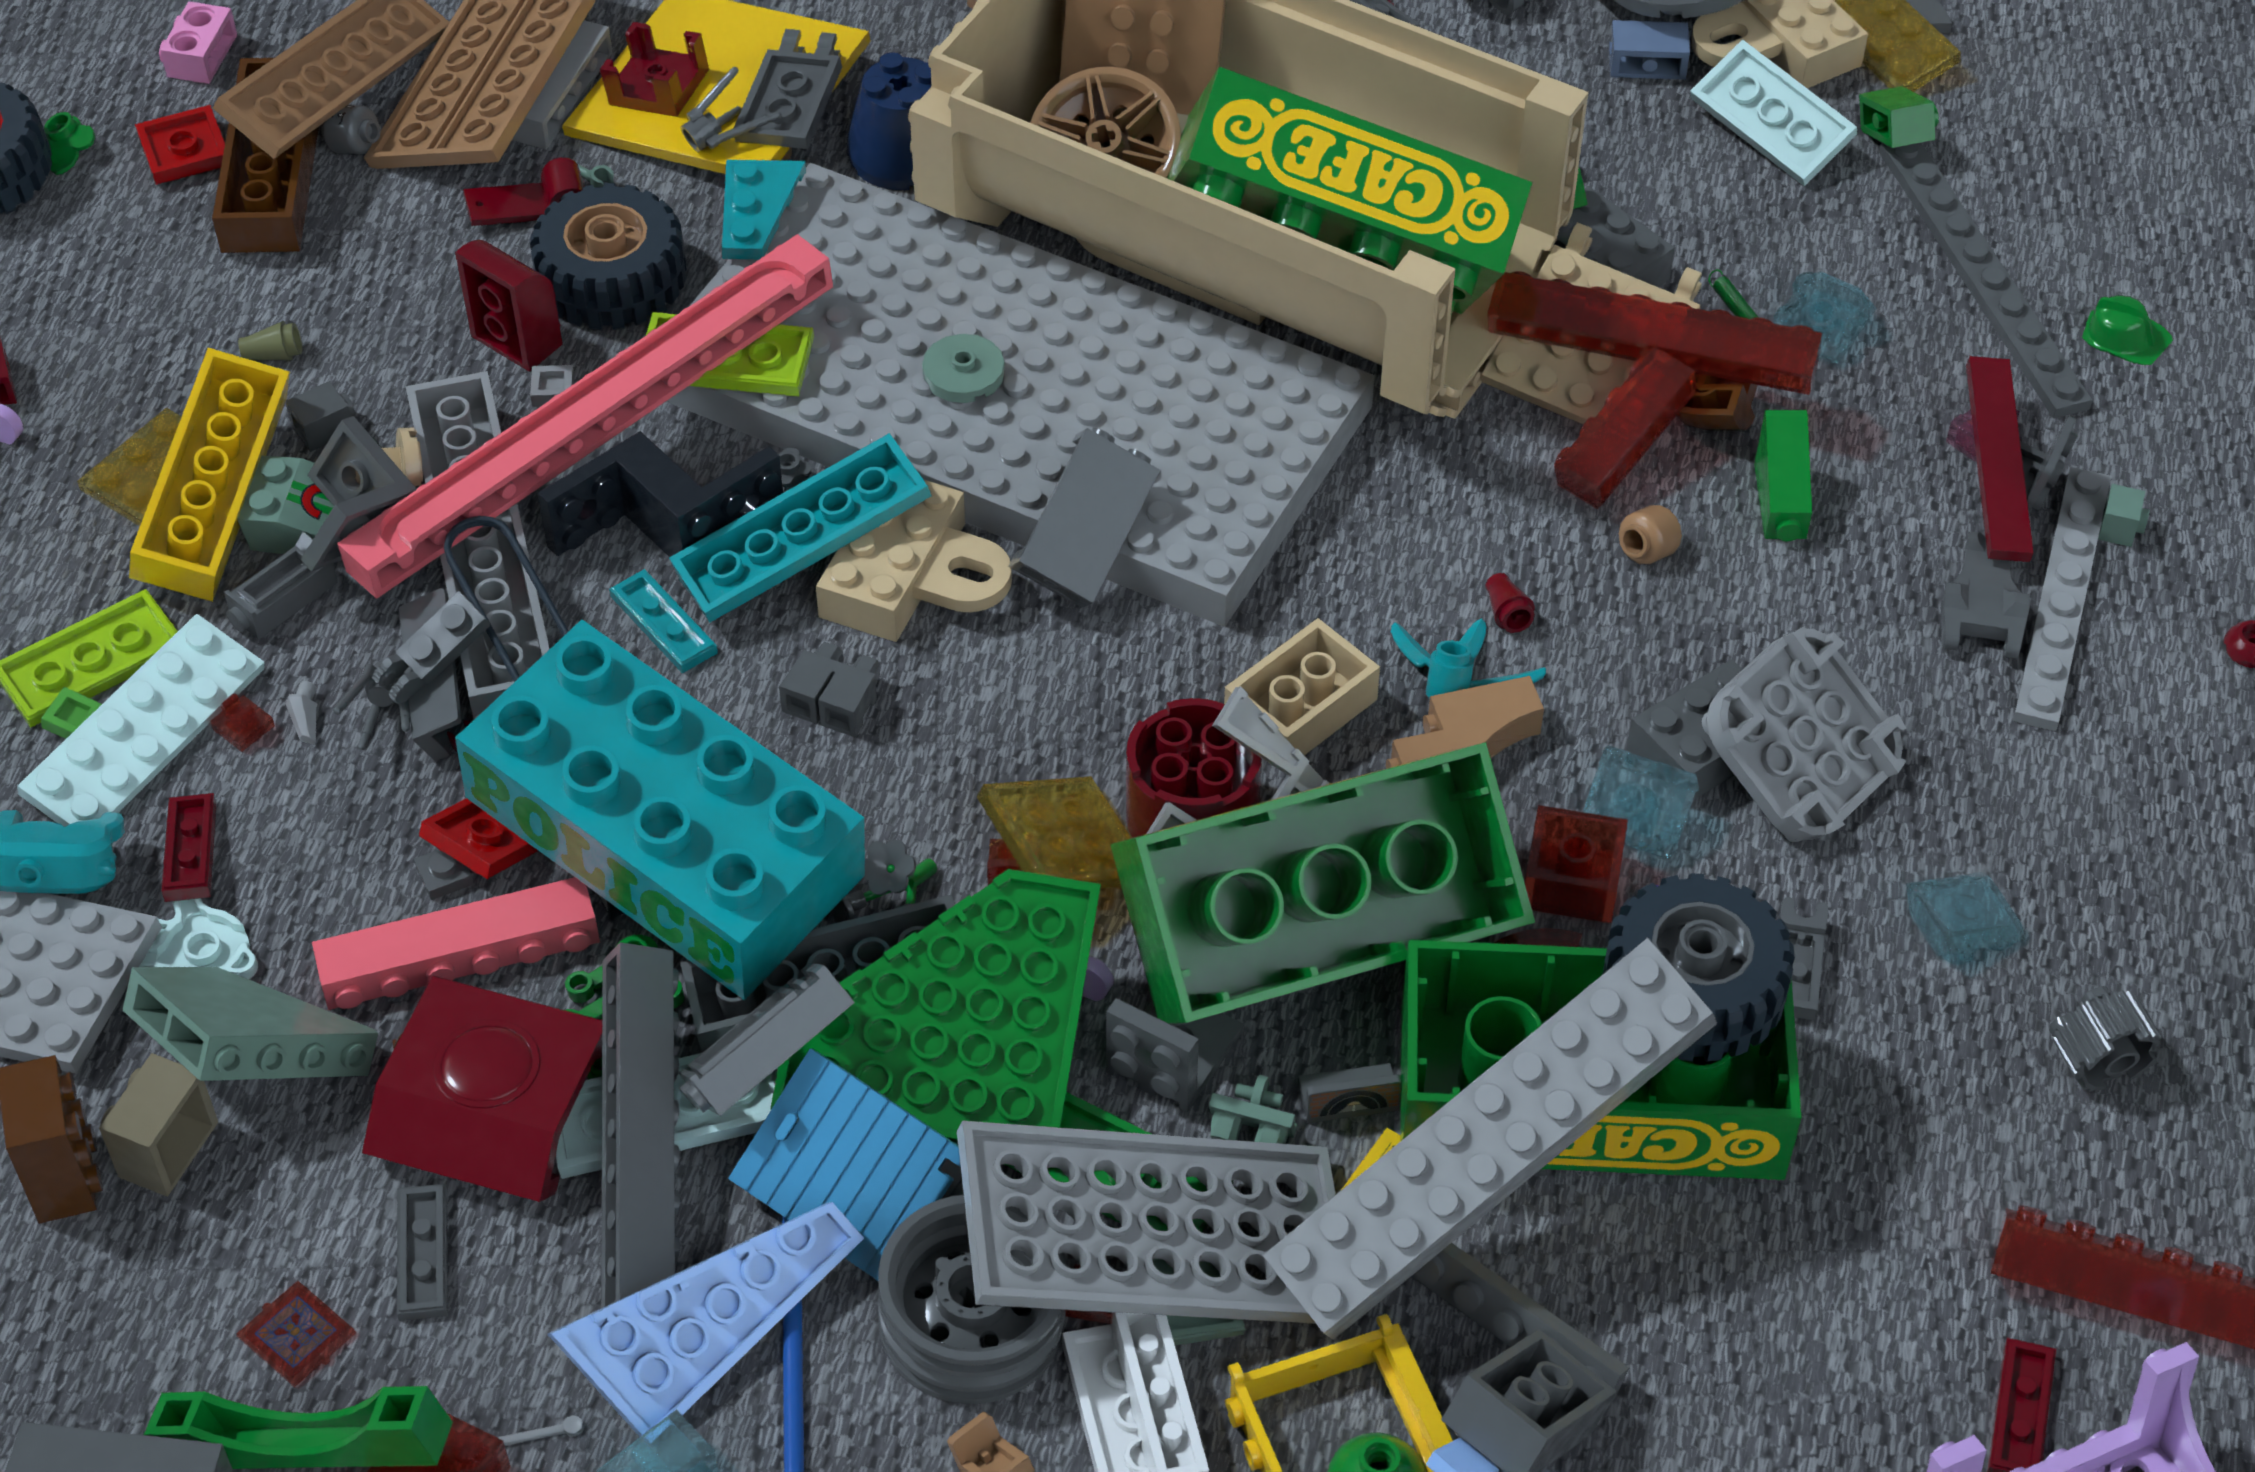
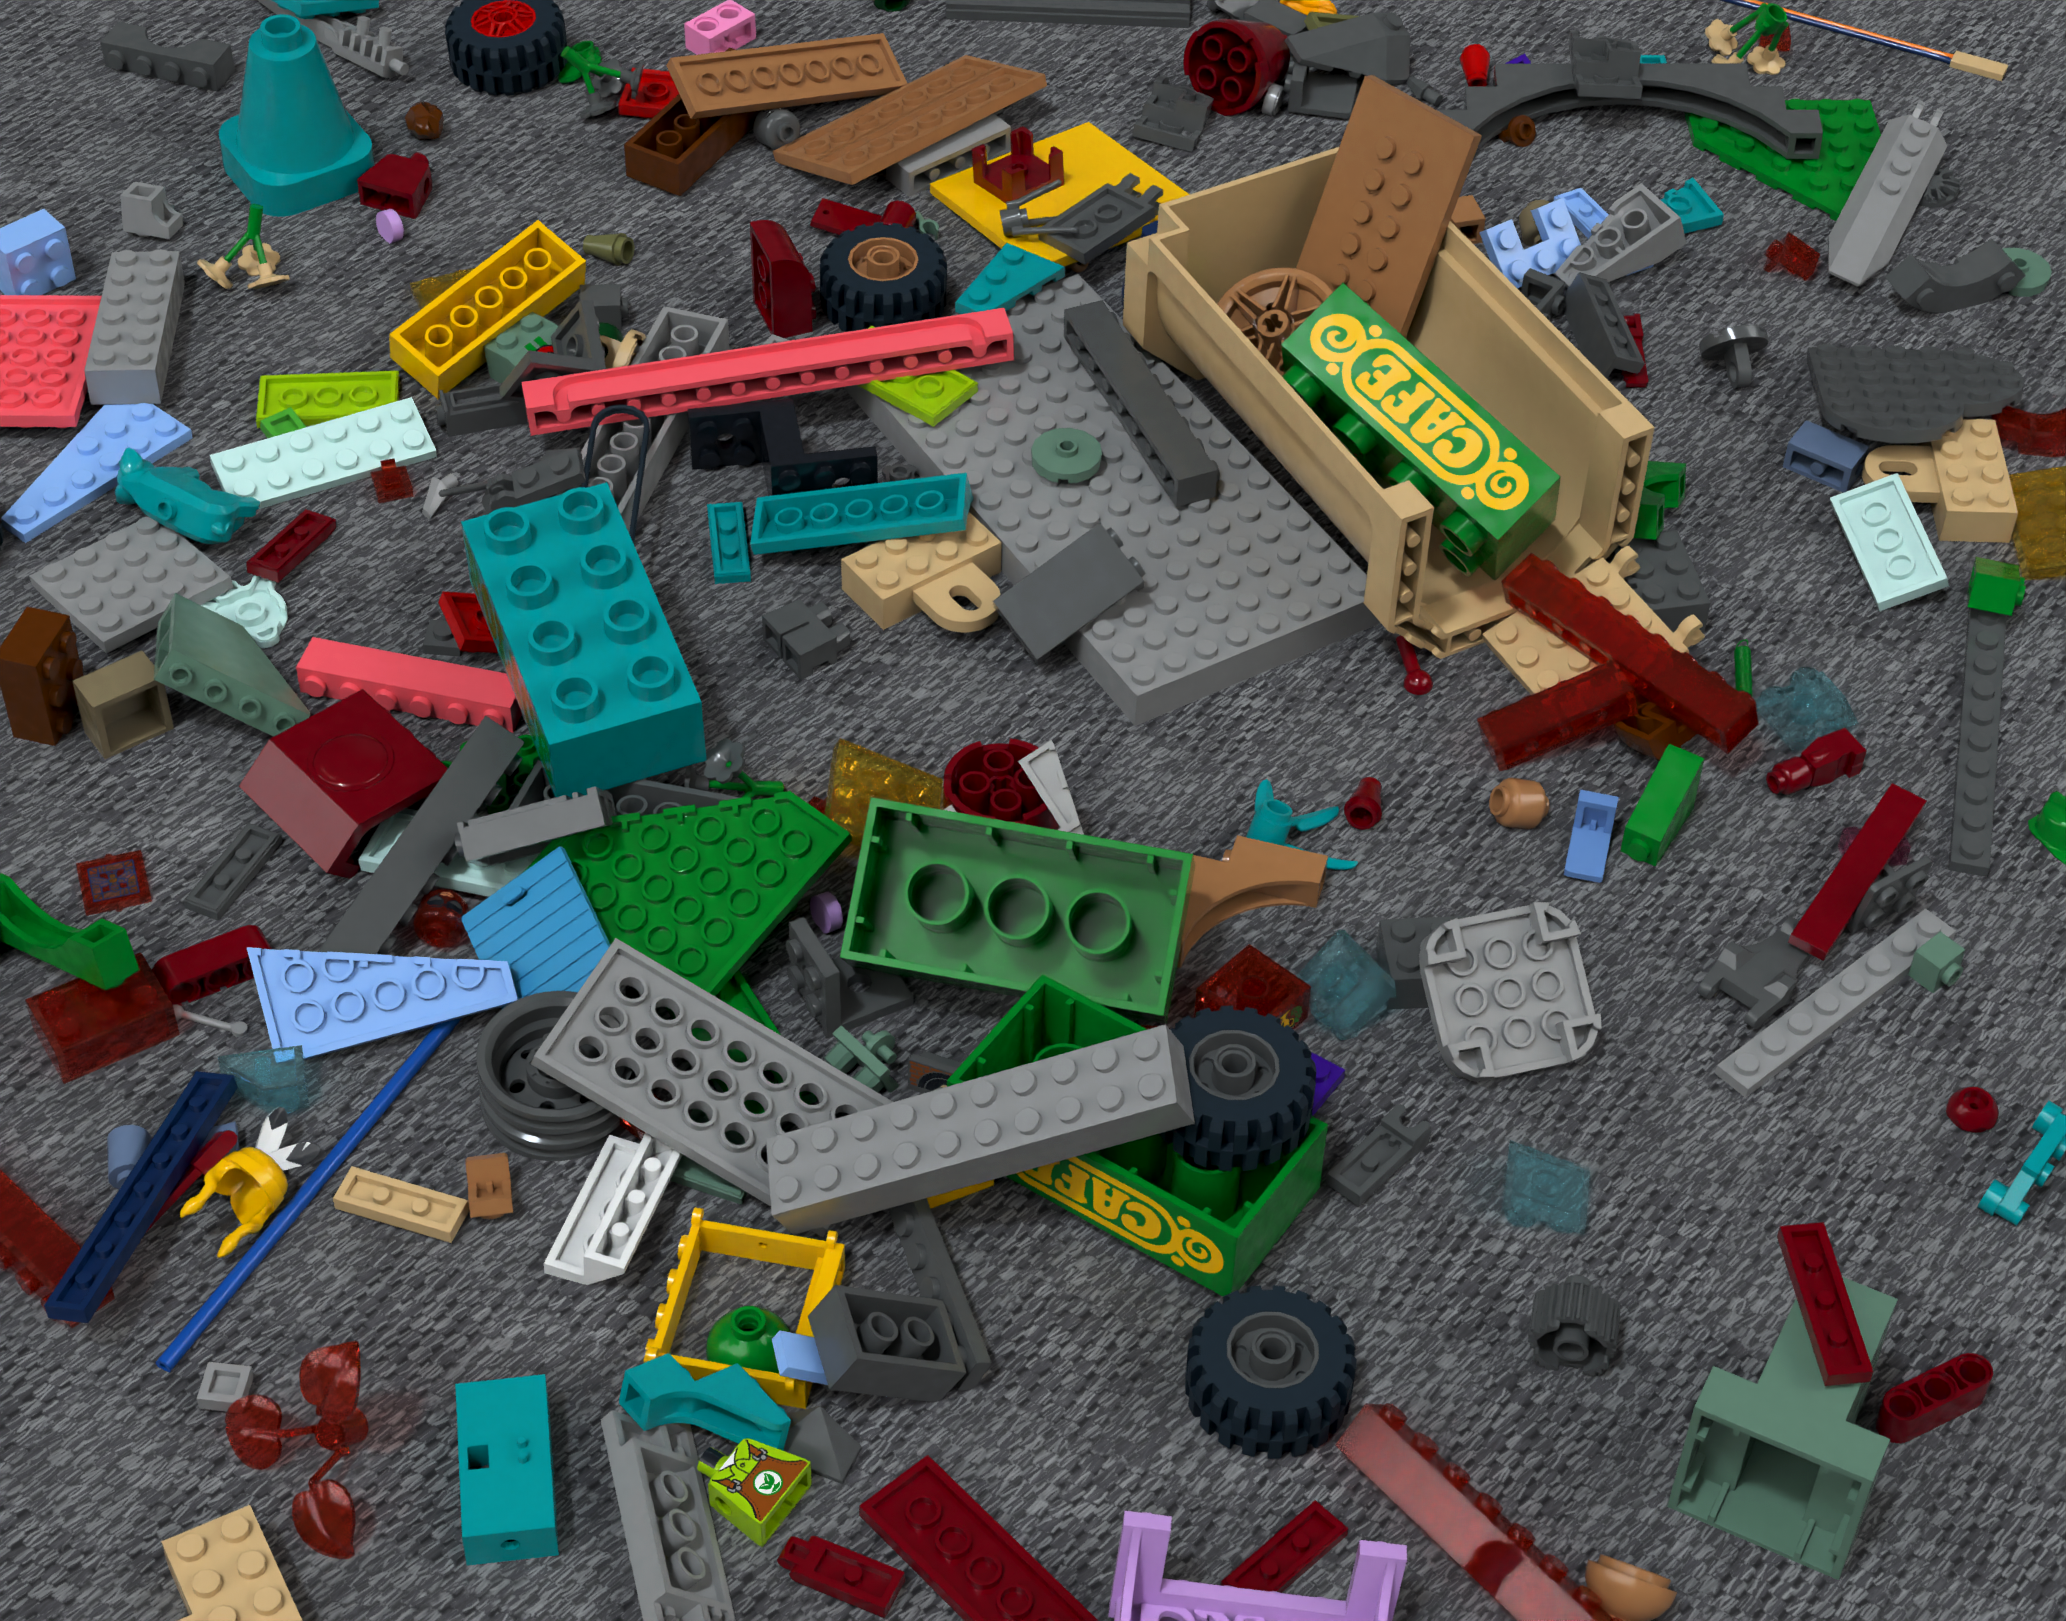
camera: 30 degrees right, 5 degrees down
(118, 148) = (608, 80): none -> dark grey plant
(496, 1364) = (209, 965): none -> dark red beam
(704, 1188) = (440, 917): none -> clear red head
(996, 278) = (1141, 403): none -> dark grey brick
(1311, 685) = (1143, 790): tan brick -> none
(1452, 451) = (1416, 680): none -> dark red bar
(1734, 539) = (1590, 836): none -> medium blue bracket
(1882, 352) = (1818, 764): none -> dark red piece
(1882, 1232) = (1270, 1371): none -> black wheel

